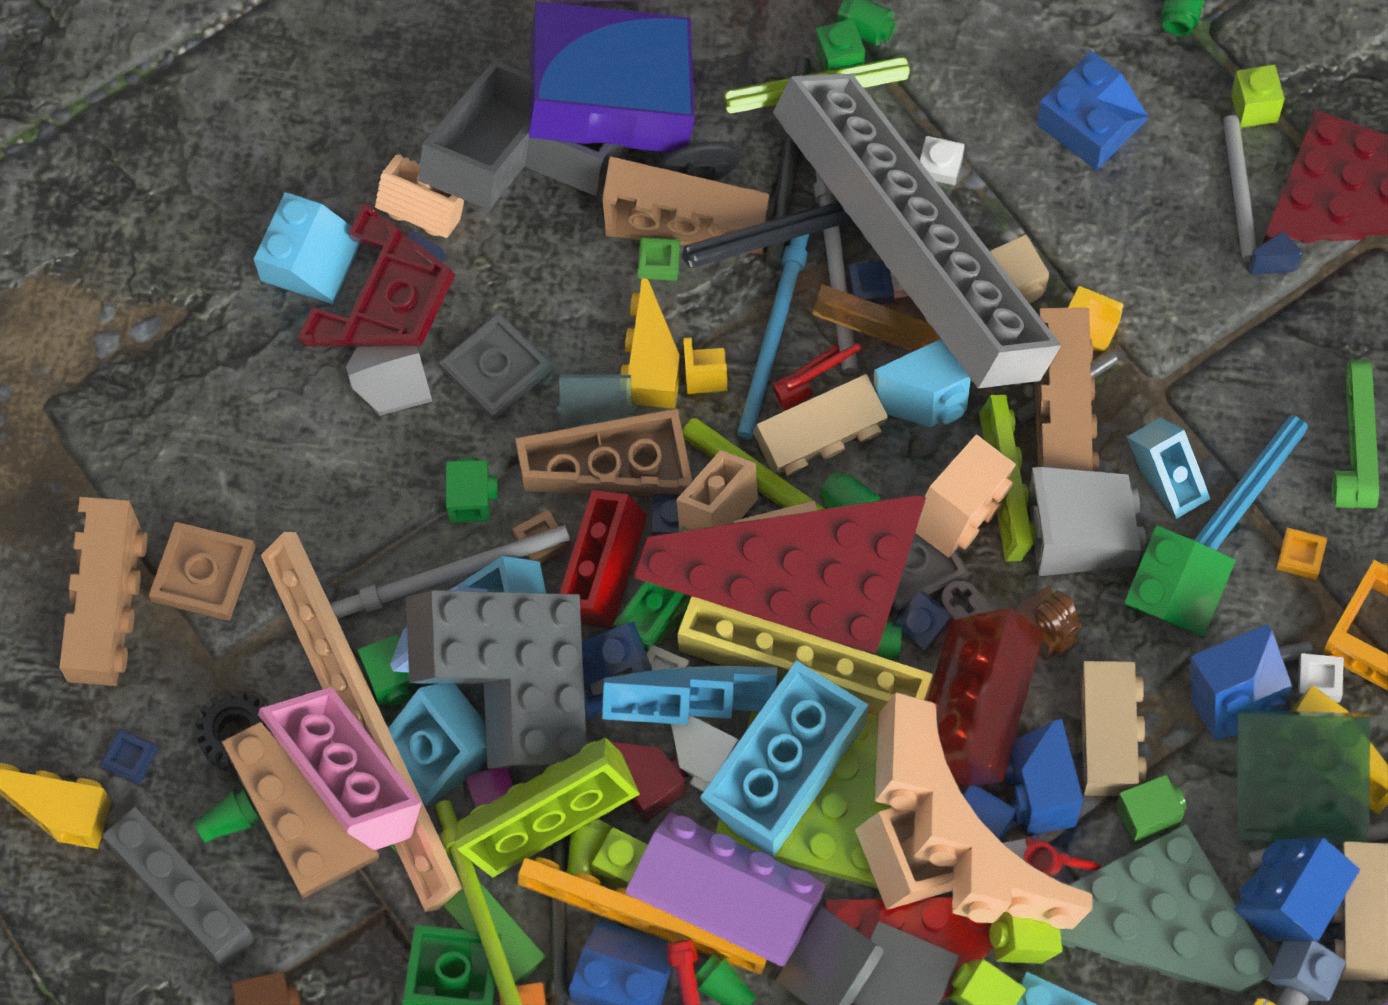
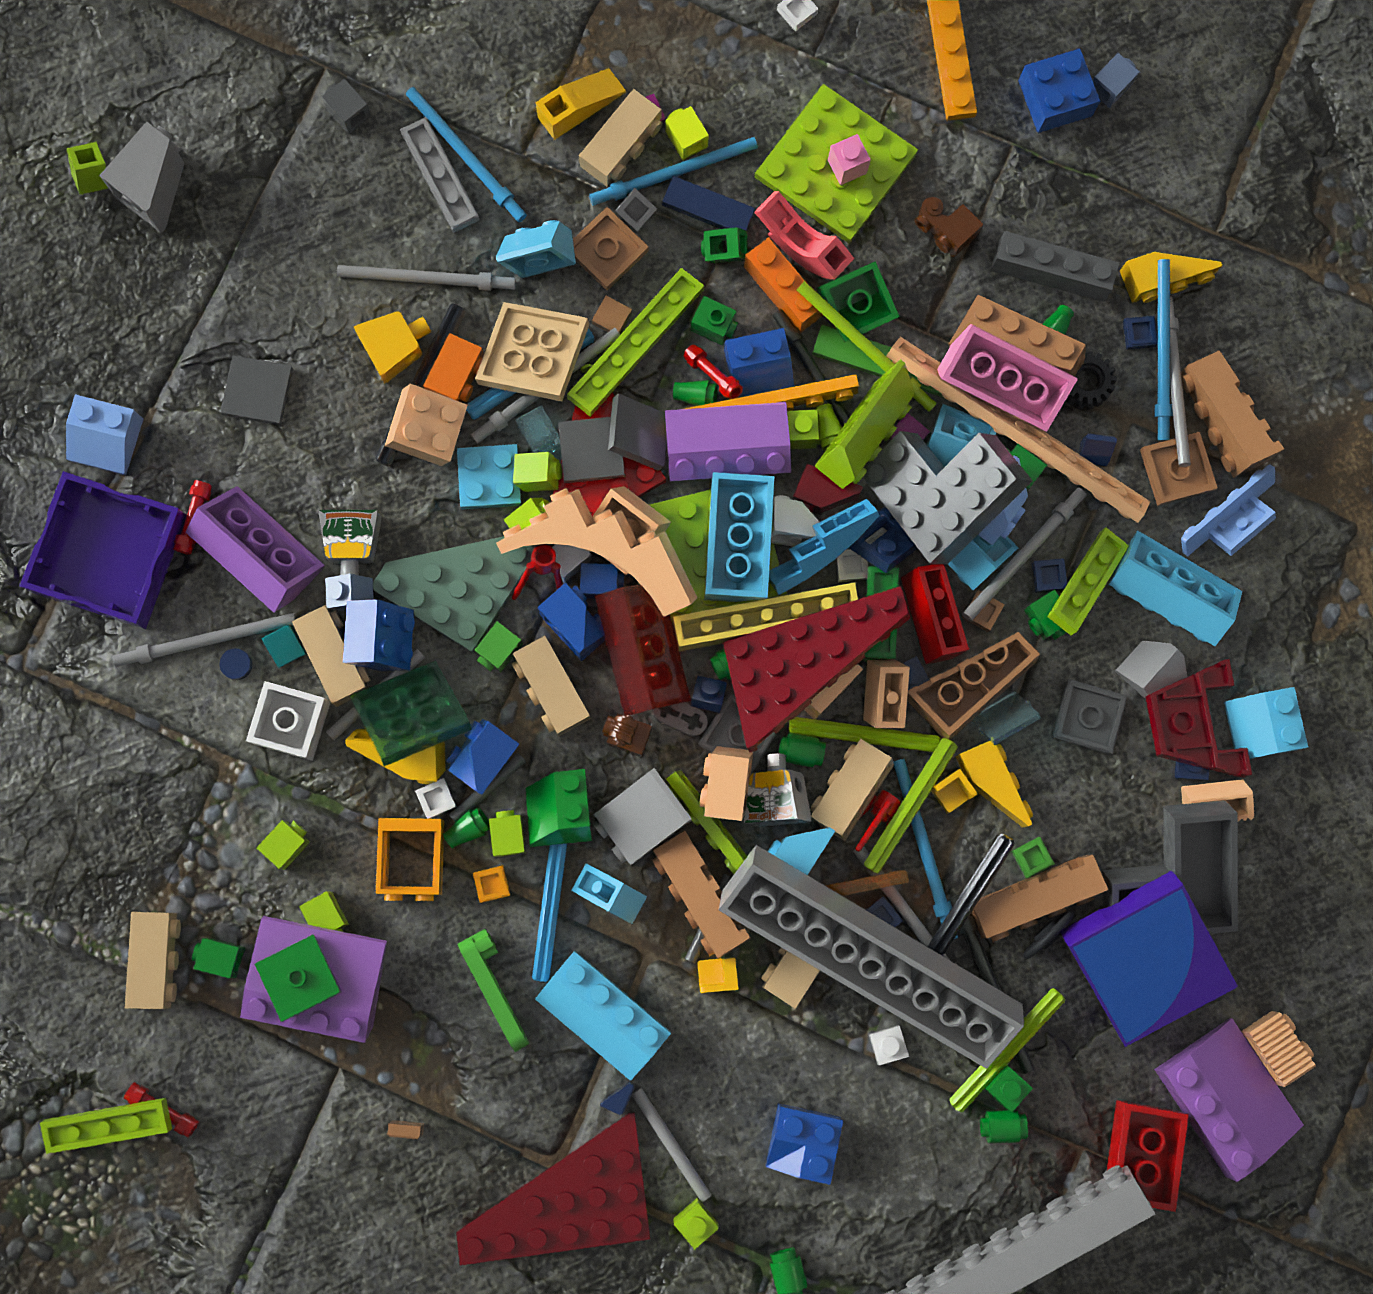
camera: 140 degrees right, 15 degrees up
(91, 740) = (1177, 394): none -> light grey bar
(168, 650) = (1163, 409): none -> dark azure bar
(182, 473) = (1235, 519): none -> light blue bracket
(280, 647) = (1097, 448): none -> dark blue slope
(301, 442) = (1176, 589): none -> medium azure slope
(400, 494) = (1088, 581): none -> lime plate
(436, 535) = (1049, 575): none -> dark blue plate
(765, 372) = (910, 805): none -> lime axle
(910, 455) = (776, 795): none -> torso
(1243, 348) = (603, 1015): none -> medium azure slope
(1254, 590) = (507, 834): none -> lime brick
(1297, 624) = (467, 828): none -> green cone

